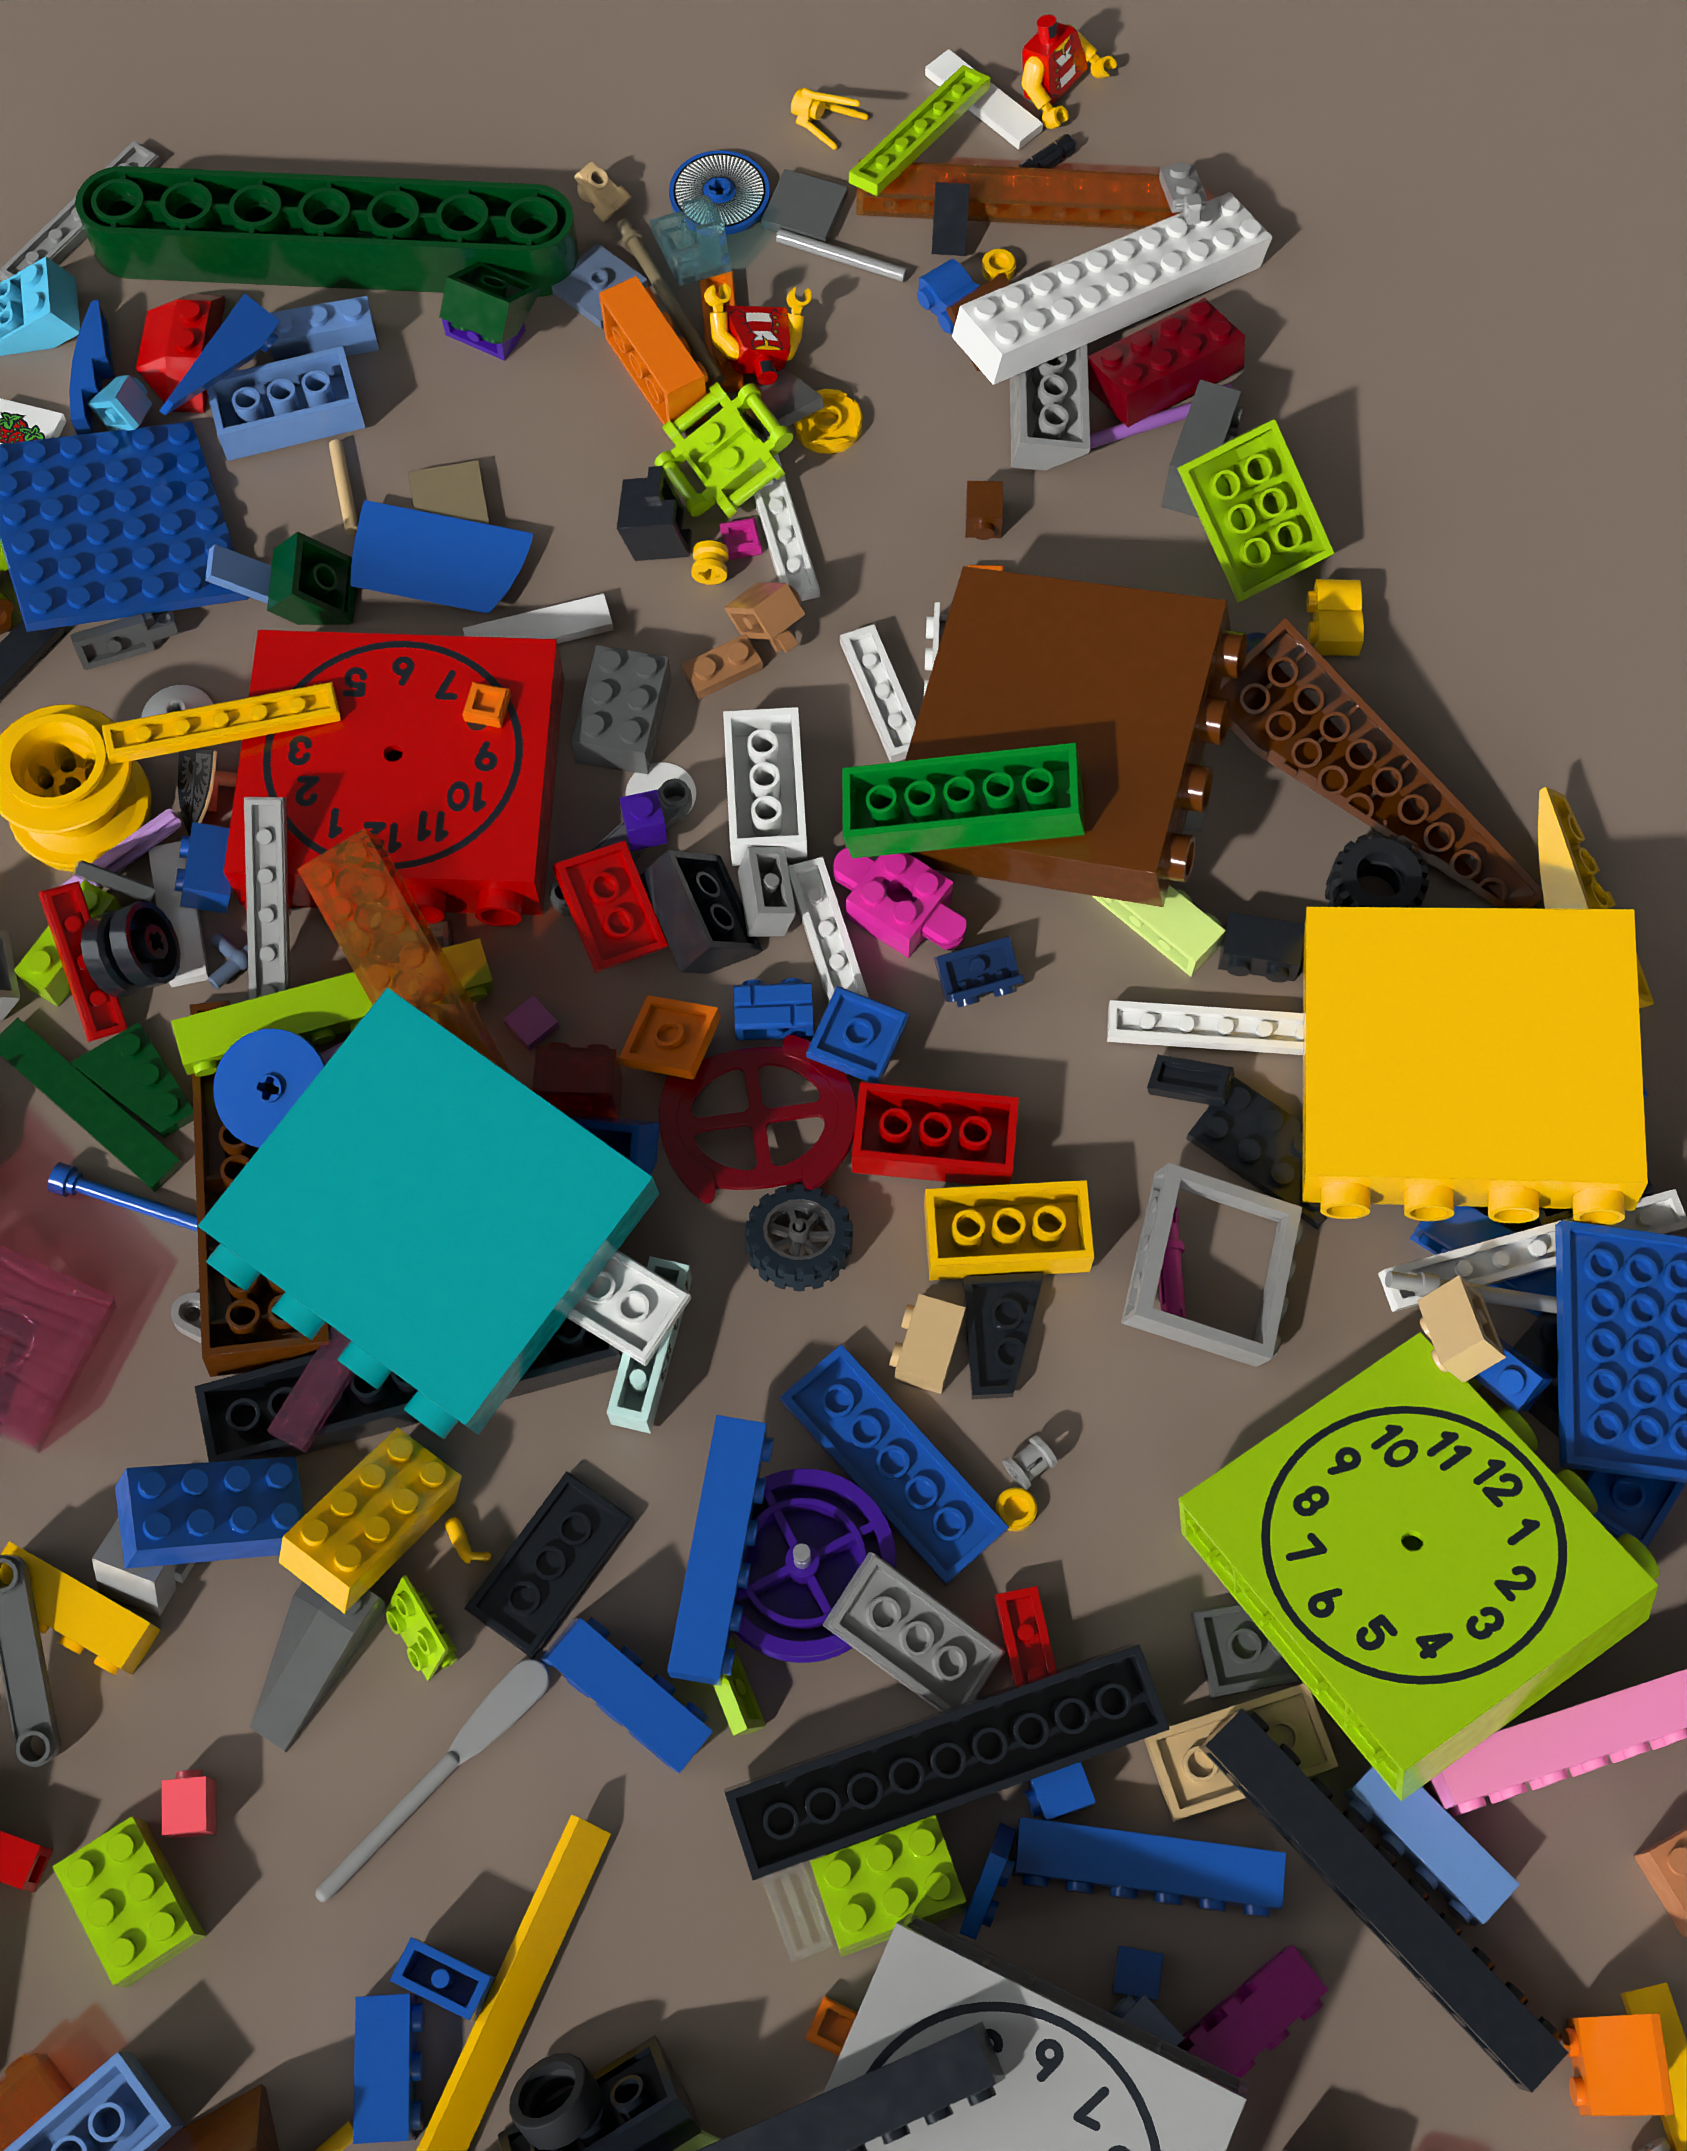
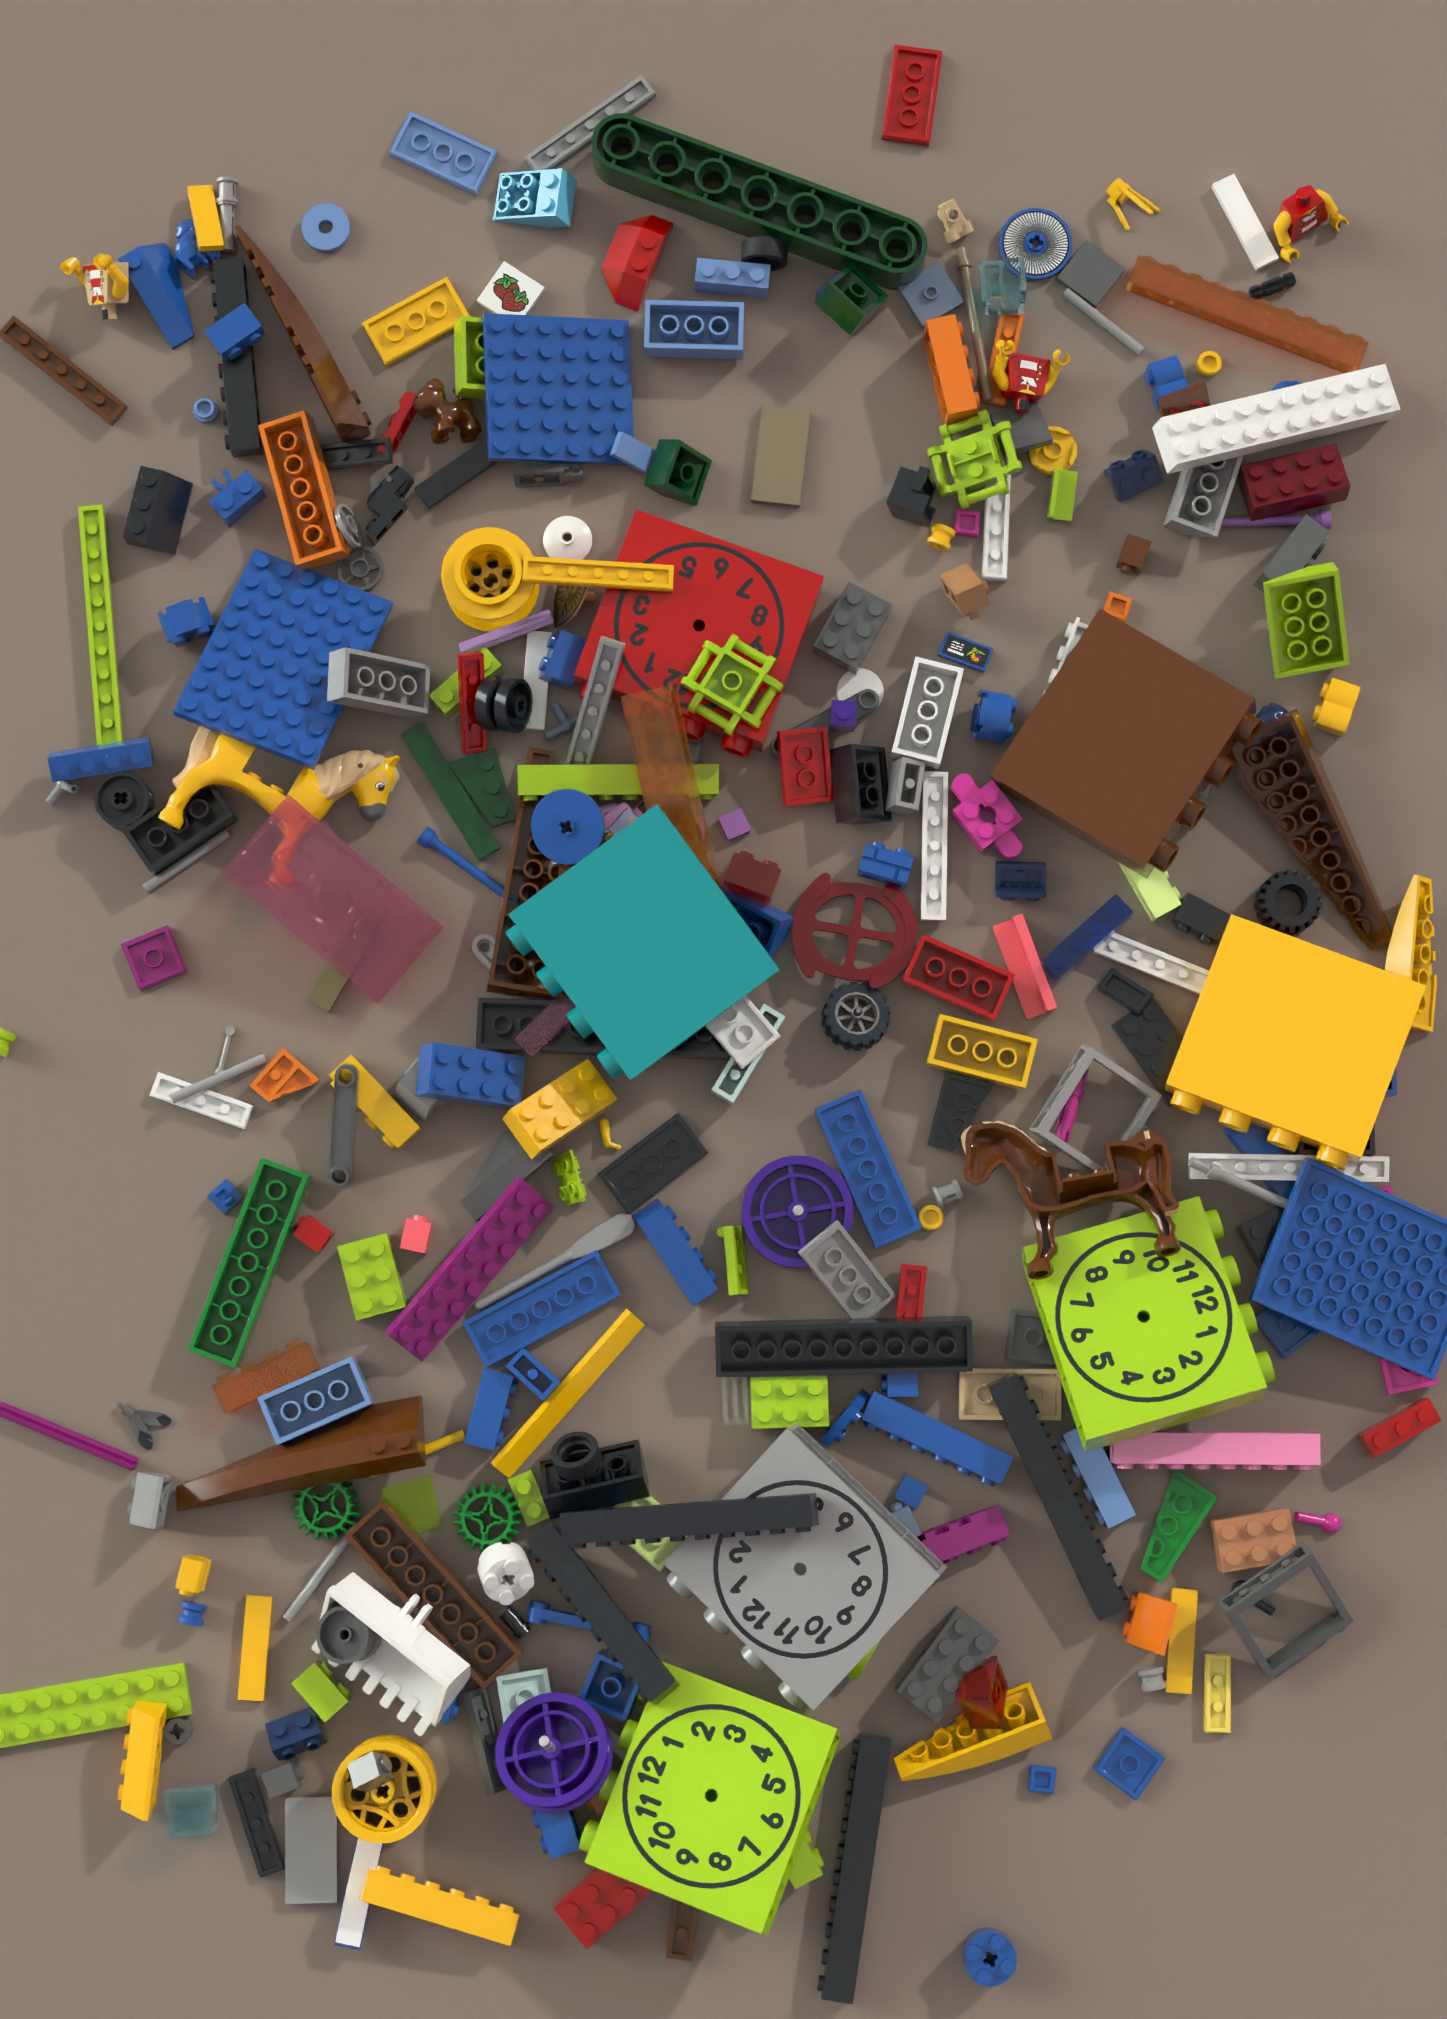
camera: 15 degrees right, 15 degrees up
(90, 365) = (572, 253): blue slope -> none
(113, 881) = (502, 654): dark grey tile -> none
(121, 403) = (586, 297): medium azure slope -> none
(233, 345) = (671, 281): blue wedge -> none
(288, 1837) = (469, 1269): none -> magenta plate
(343, 486) = (716, 401): tan bar -> none
(357, 271) = (765, 251): none -> black tyre
(428, 1864) = (541, 1308): none -> blue plate
(436, 557) = (762, 477): blue sticker -> none
(462, 810) = (731, 683): none -> lime brick
(486, 705) = (766, 611): orange tile -> none
(500, 75) = (911, 95): none -> red tile
(558, 622) = (816, 549): white tile -> none
(670, 1037) = (817, 863): orange plate -> none
(719, 1551) = (752, 1191): blue brick -> none
(721, 666) = (925, 614): medium nougat plate -> none
(810, 696) = (965, 652): none -> tile
(831, 2026) = (736, 1465): orange tile -> none
(857, 747) = (992, 717): none -> blue brick
(857, 1035) = (931, 900): blue plate -> none
(859, 465) = (1062, 495): none -> lime panel
(880, 690) = (1022, 665): white plate -> none
(919, 130) = (1188, 245): lime plate -> none
(928, 1343) = (912, 1104): tan brick -> none
(950, 218) = (1186, 321): black tile -> none
(950, 417) = (1134, 474): none -> dark blue bracket
(963, 801) = (1042, 780): green brick -> none
(1043, 1105) = (1024, 962): none -> coral panel
(1106, 1017) = (1087, 938): none -> clear blue brick
(1183, 191) = (1351, 358): light grey hinge -> none
(1297, 1338) = (1133, 1177): none -> reddish brown animal
(1460, 1329) = (1220, 1204): tan brick -> none
(1515, 1379) = (1238, 1232): blue brick -> none
(1588, 1876) = (1179, 1518): none -> green wing

